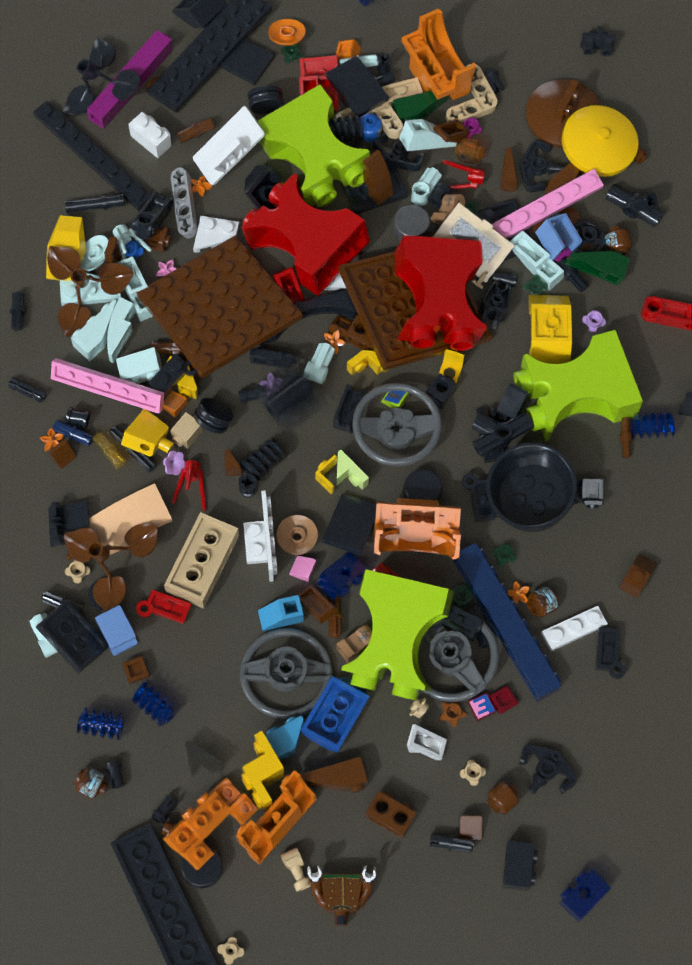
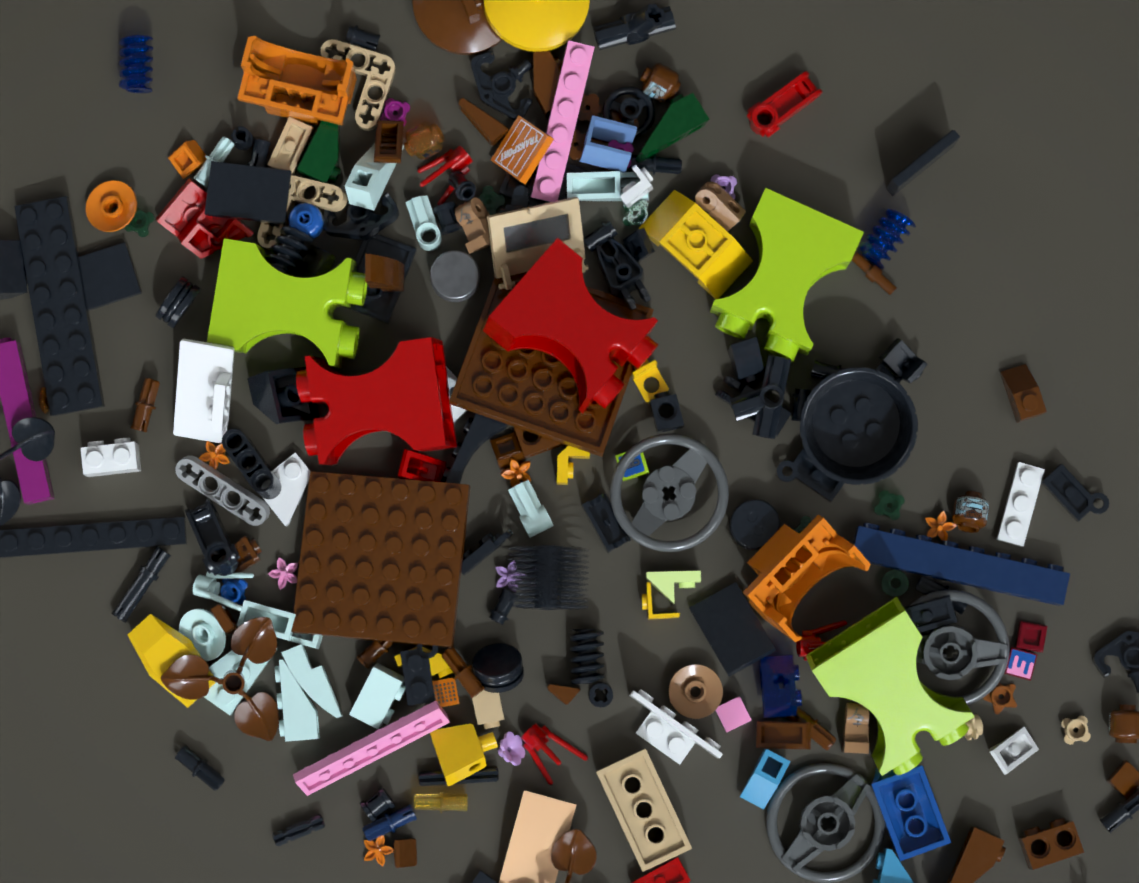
camera: 50 degrees left, 15 degrees up
(193, 397) = (463, 672): none -> reddish brown axle
(211, 202) = (259, 472): none -> black beam
(463, 190) = (463, 188): none -> black pin
(512, 199) = (522, 149): none -> orange tile
(519, 301) = (639, 245): none -> black tile
(549, 271) = (633, 191): none -> white bracket
(582, 322) = (719, 205): none -> medium nougat leg

